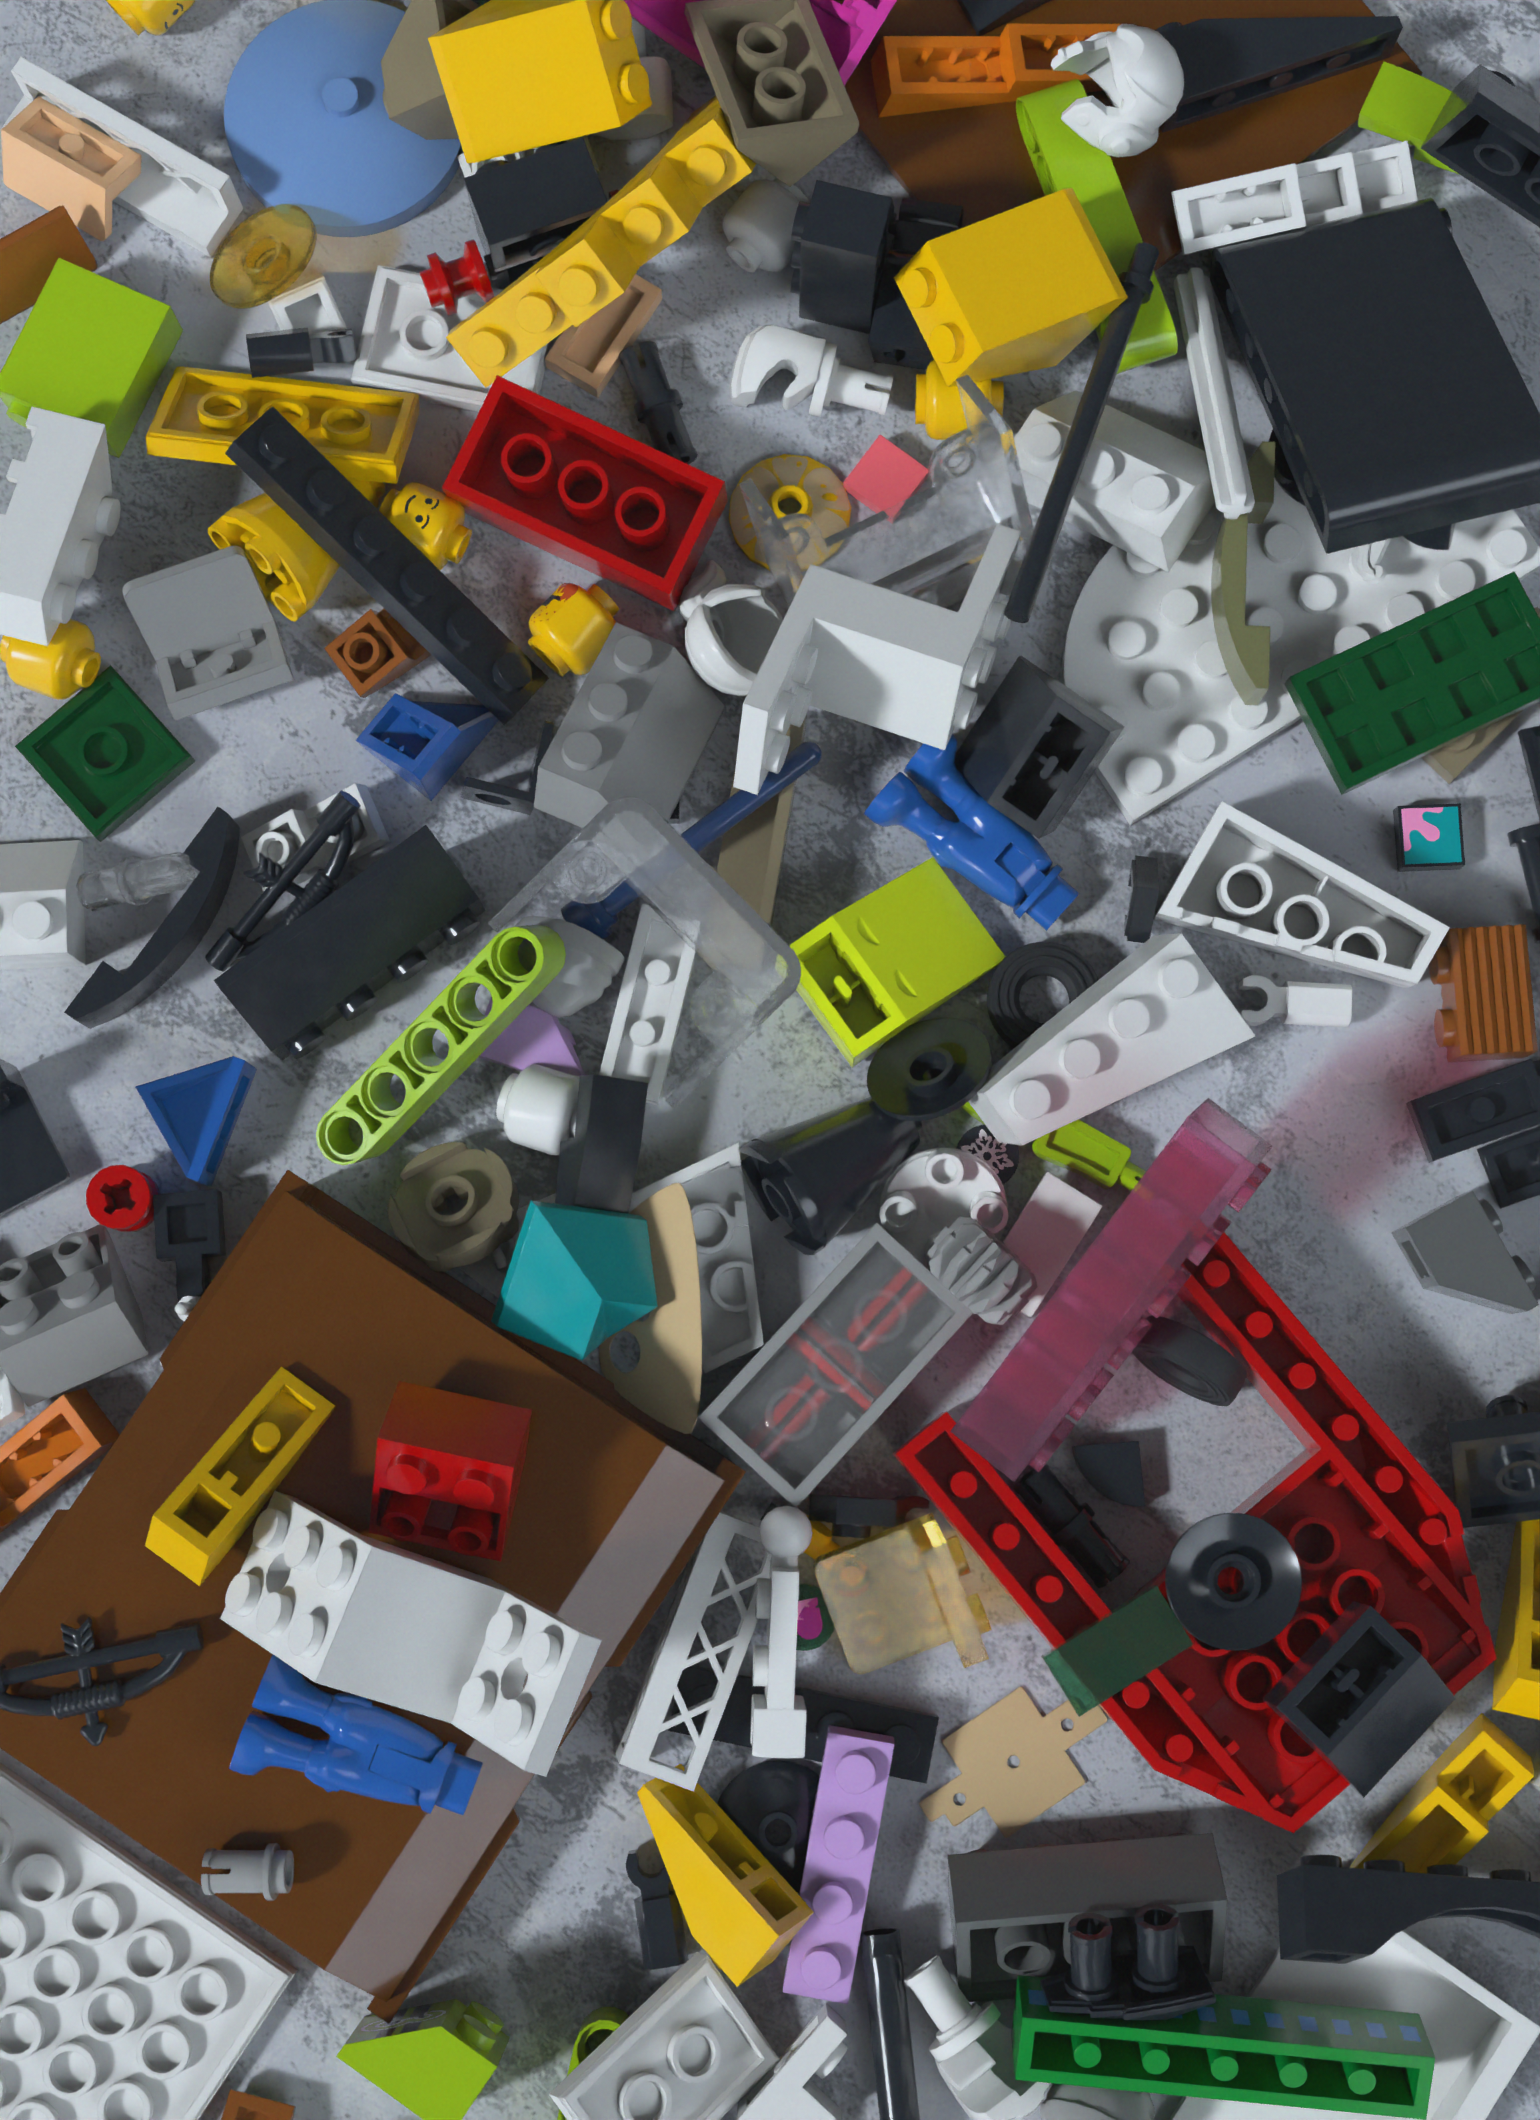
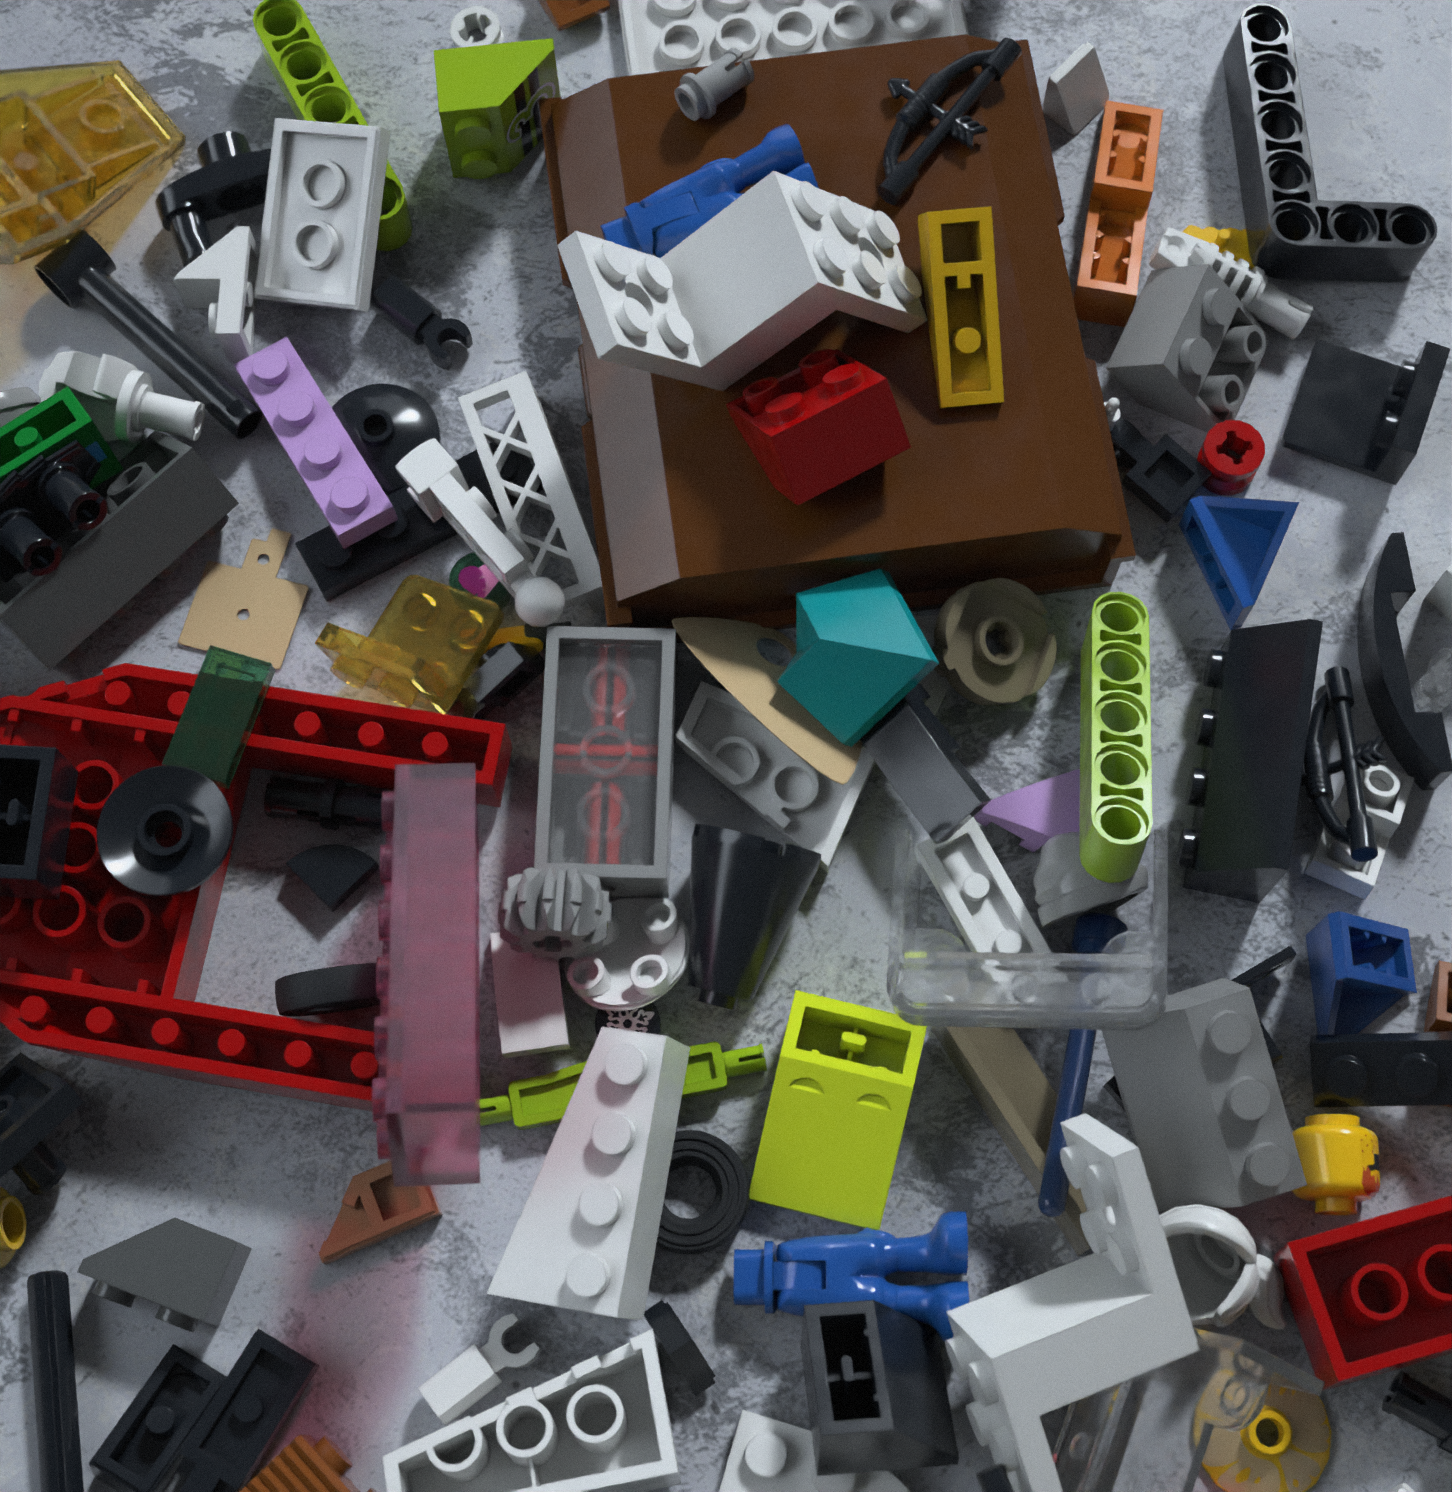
camera: 140 degrees right, 10 degrees down
(539, 1108) = (1002, 763): white head -> none
(723, 1883) = (390, 364): yellow slope -> none
(929, 1069) = (748, 1039): black dish -> none
(1292, 1183) = (376, 1212): none -> nougat tile

